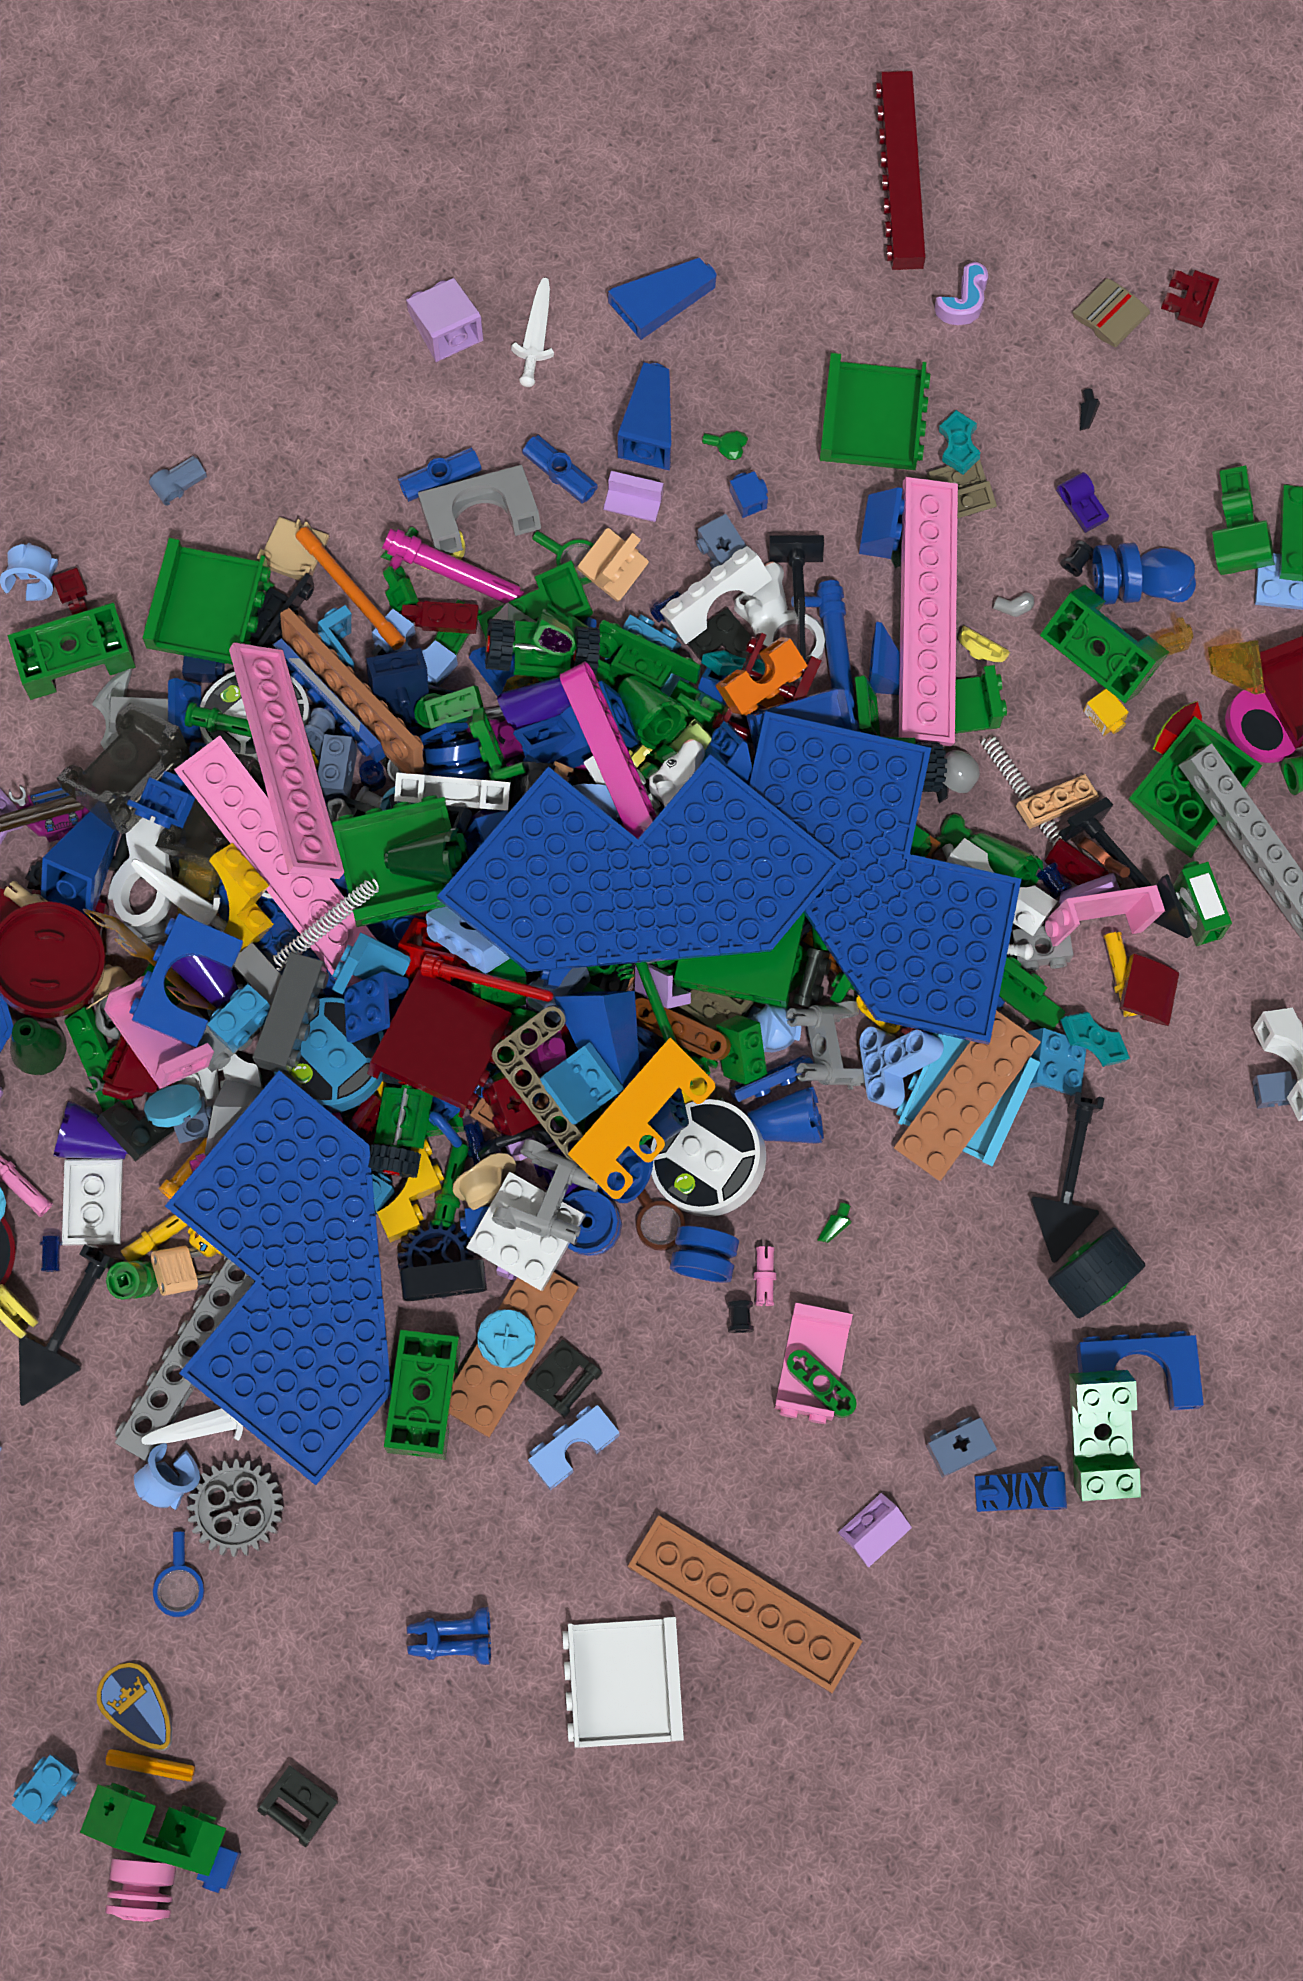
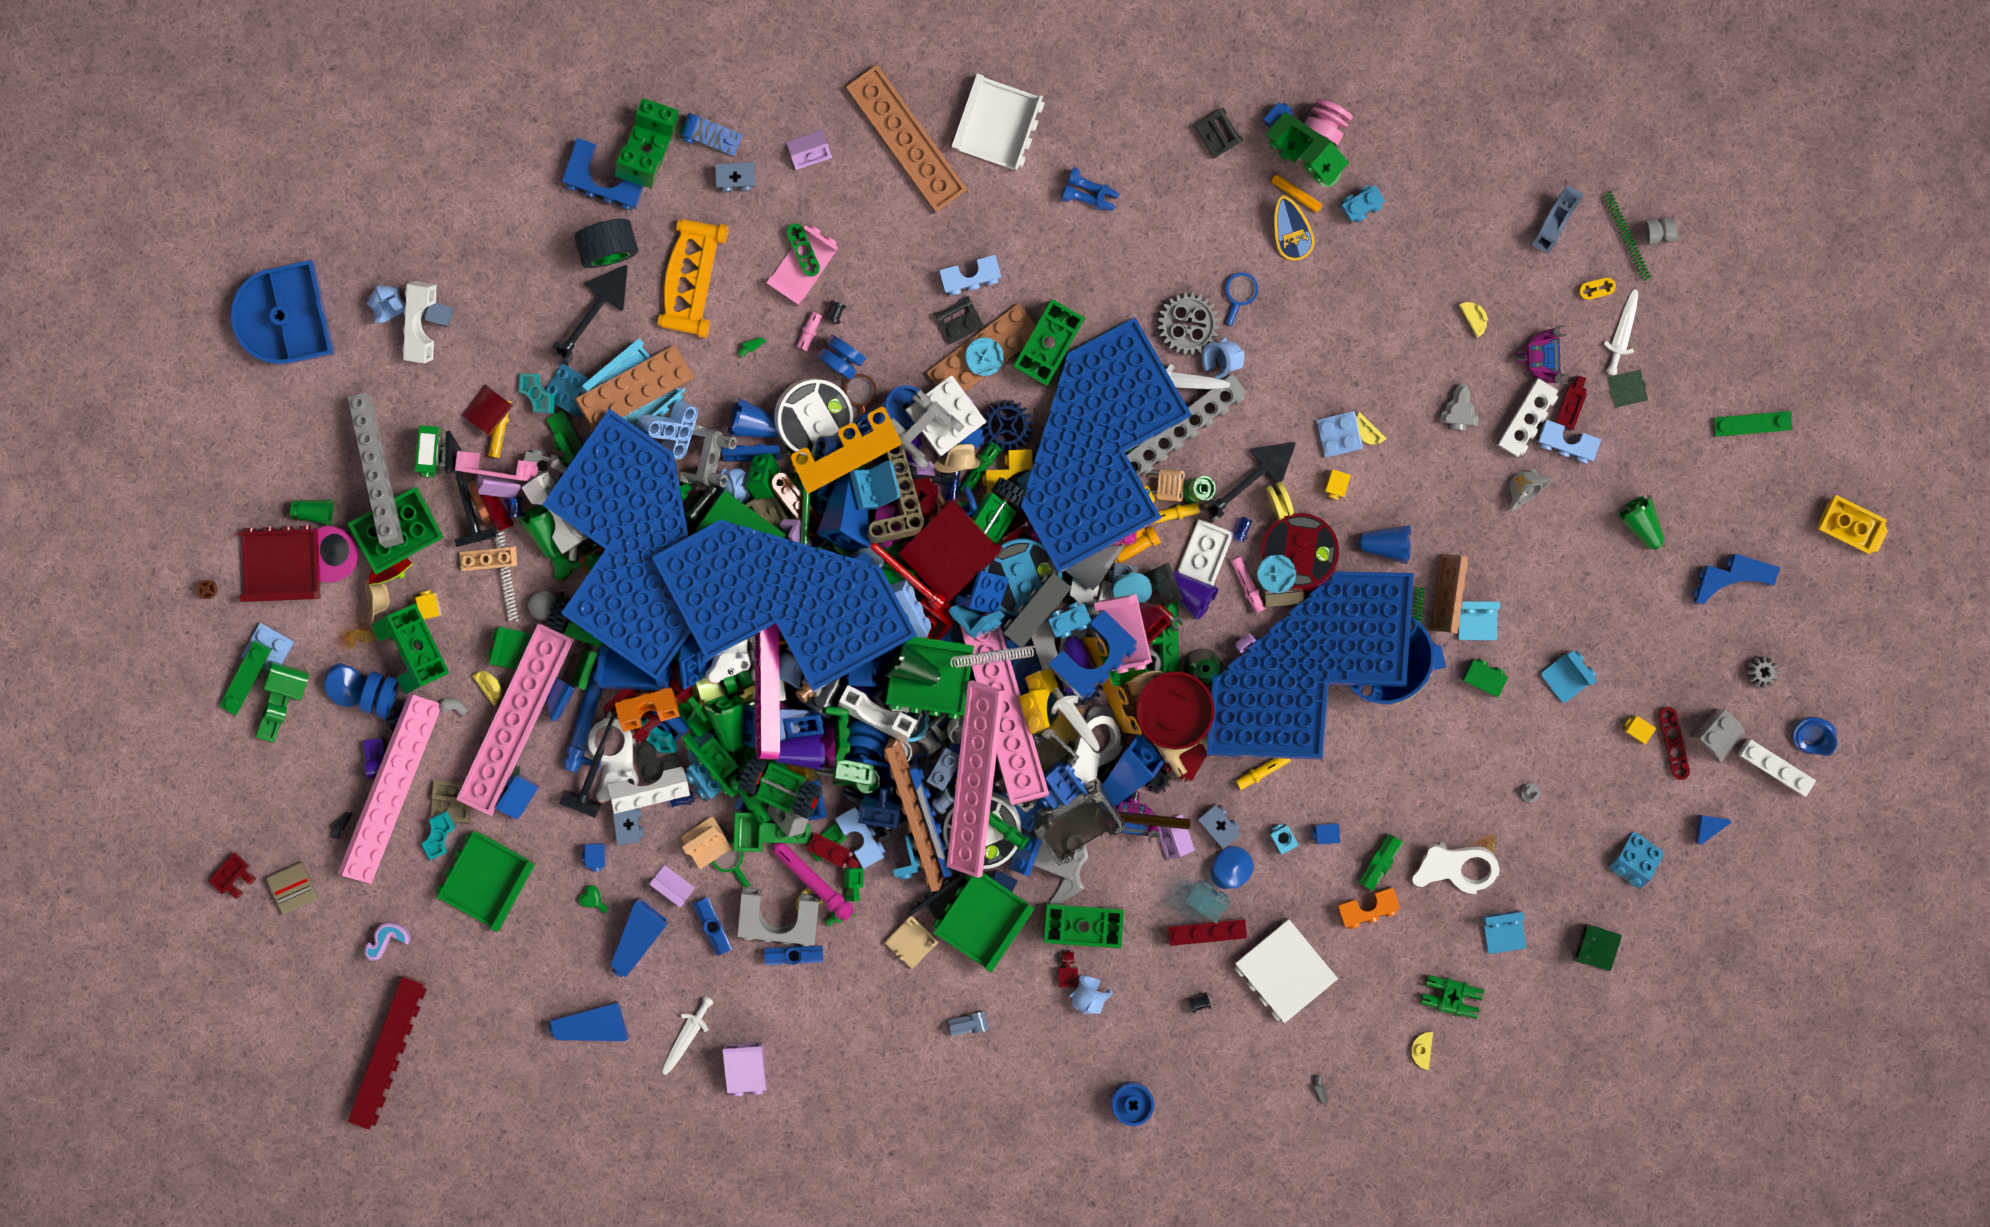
camera: 155 degrees left, 15 degrees up
(384, 627) = (874, 854): orange piece -> none
(443, 1280) = (1008, 406): black beam -> none
(553, 636) = (771, 789): rock -> none
(960, 1345) = (706, 237): none -> light orange piece
(1047, 471) = (389, 788): none -> bright pink plate
(1173, 691) = (377, 598): none -> tan piece
(1238, 665) = (328, 599): clear yellow wing -> none

